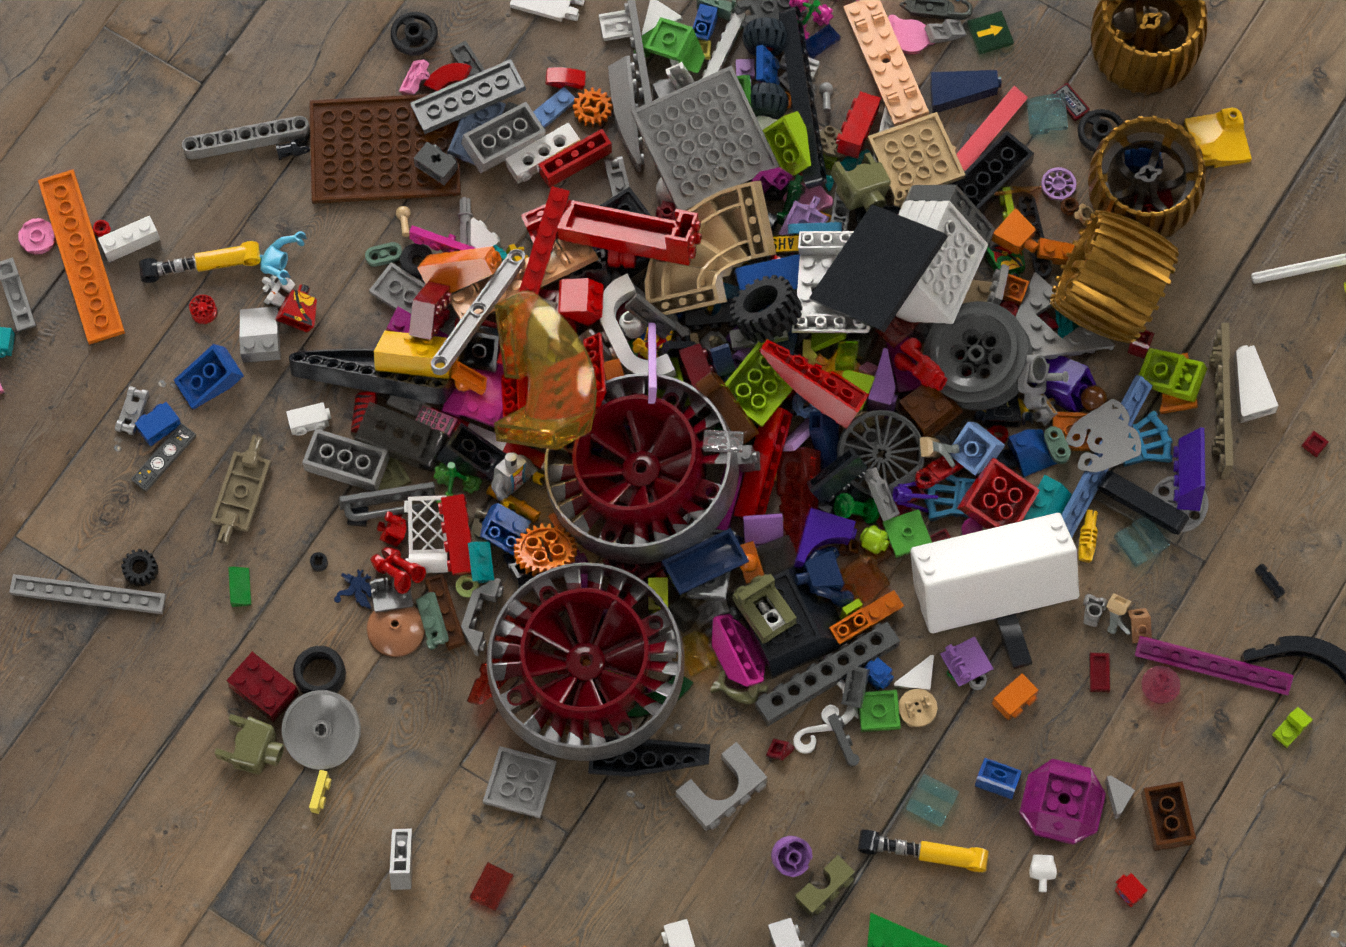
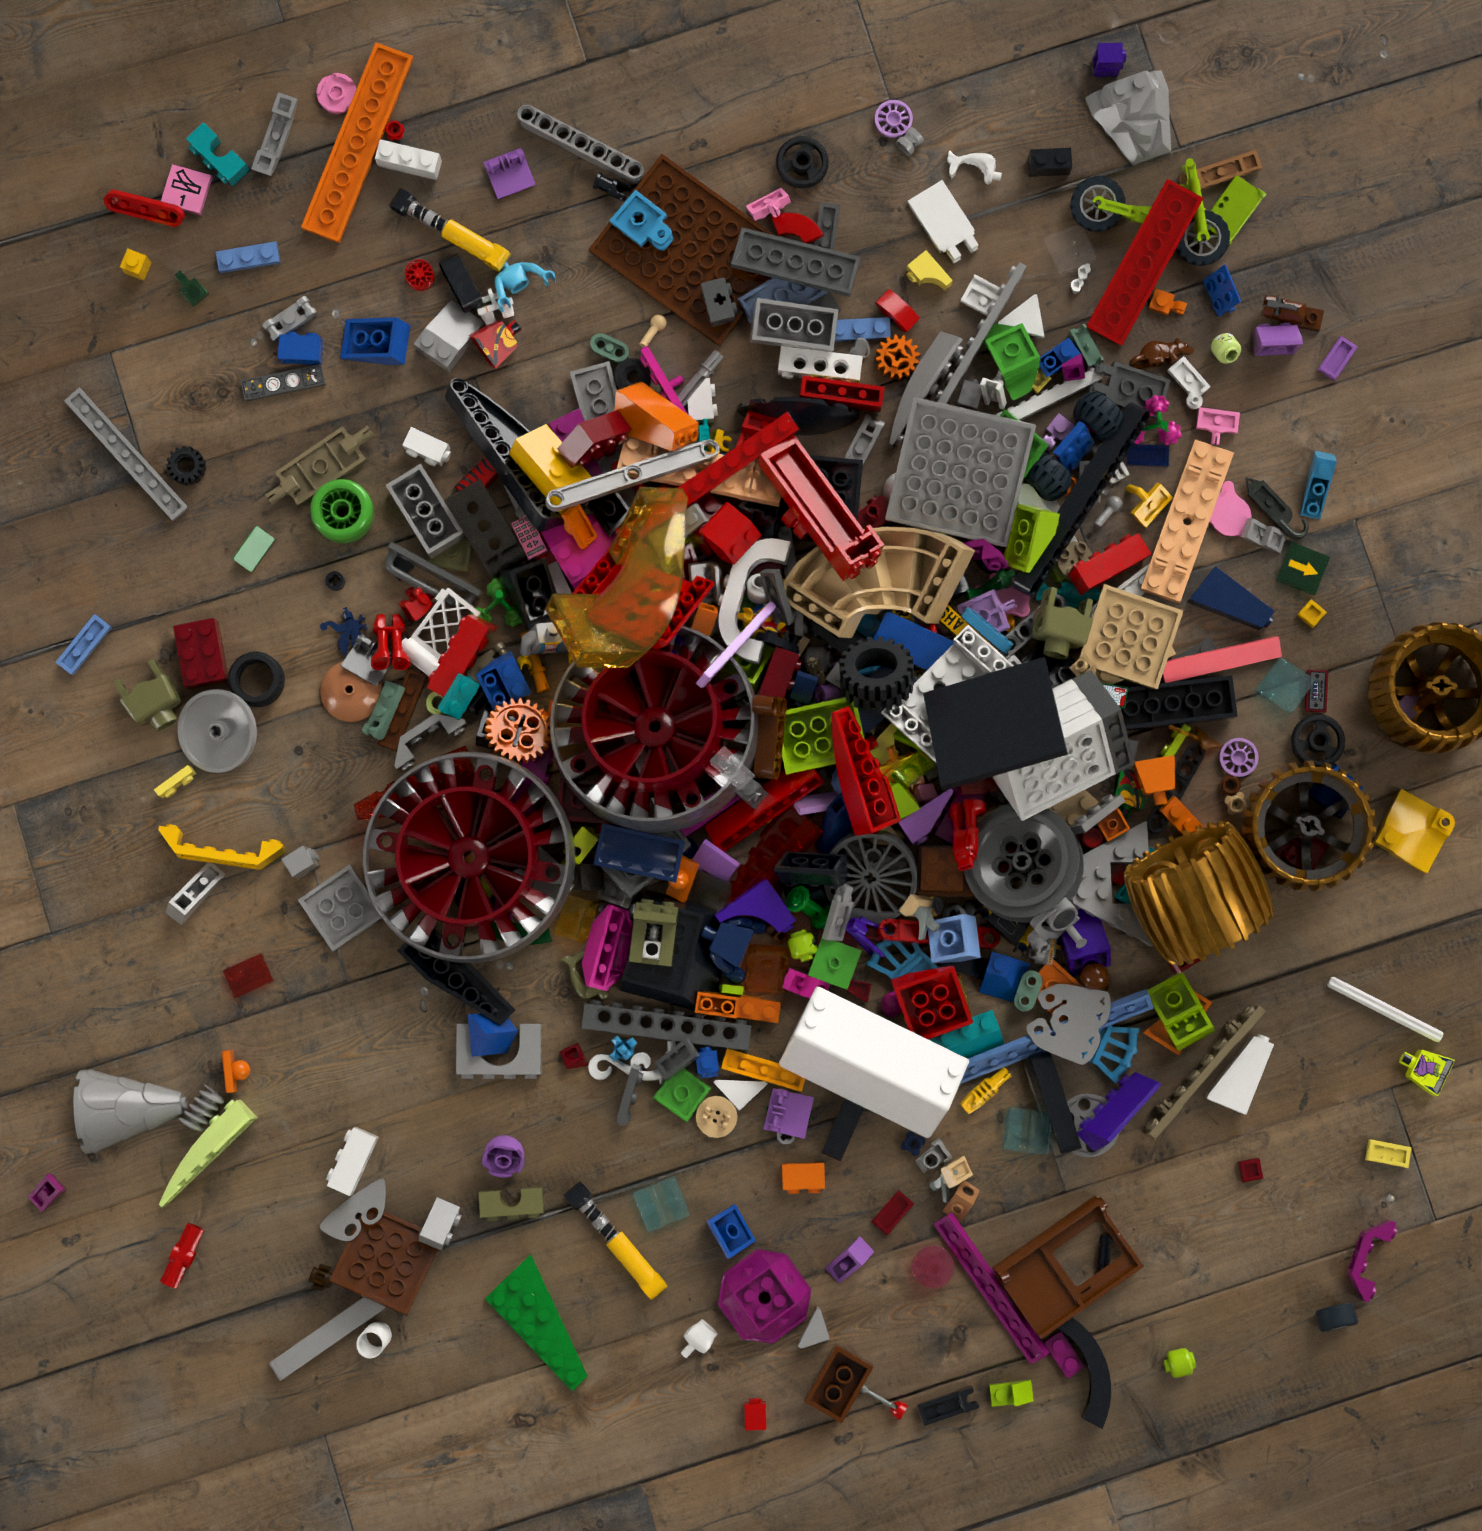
camera: 40 degrees right, 15 degrees up
(42, 445) = (191, 290): none -> clear green plate
(64, 393) = (248, 257): none -> medium blue plate
(167, 751) = (83, 644): none -> medium blue plate
(210, 195) = (509, 173): none -> medium lavender hinge
(238, 291) = (460, 283): none -> black beam
(283, 493) = (336, 496): none -> bright green wheel
(346, 151) = (649, 229): none -> dark azure plate
(350, 833) = (268, 853): none -> yellow slope
(463, 769) = (301, 861): none -> light grey brick
(496, 554) = (477, 701): none -> black piece
(561, 119) = (860, 348): none -> light grey piece
(564, 36) = (927, 270): none -> light yellow arch
(575, 178) = (809, 414): none -> black brick
(707, 779) = (488, 1036): none -> blue slope
(721, 21) = (1074, 368): none -> magenta slope
(810, 714) = (623, 1048): none -> dark azure rock
(851, 69) = (1150, 504): none -> yellow plate
(897, 567) = (802, 984): none -> dark pink brick
(921, 648) = (761, 1069): none -> light orange plate
(1022, 56) = (1311, 613): none -> yellow tile
(1074, 608) = (911, 1137): none -> dark blue plate
(1099, 727) = (849, 1260): none -> medium lavender slope
(1225, 803) = (897, 1408): none -> hinge
(1248, 632) = (1043, 1287): none -> reddish brown piece
(1257, 772) = (946, 1406): none -> black plate
(1304, 670) = (1063, 1354): none -> magenta plate

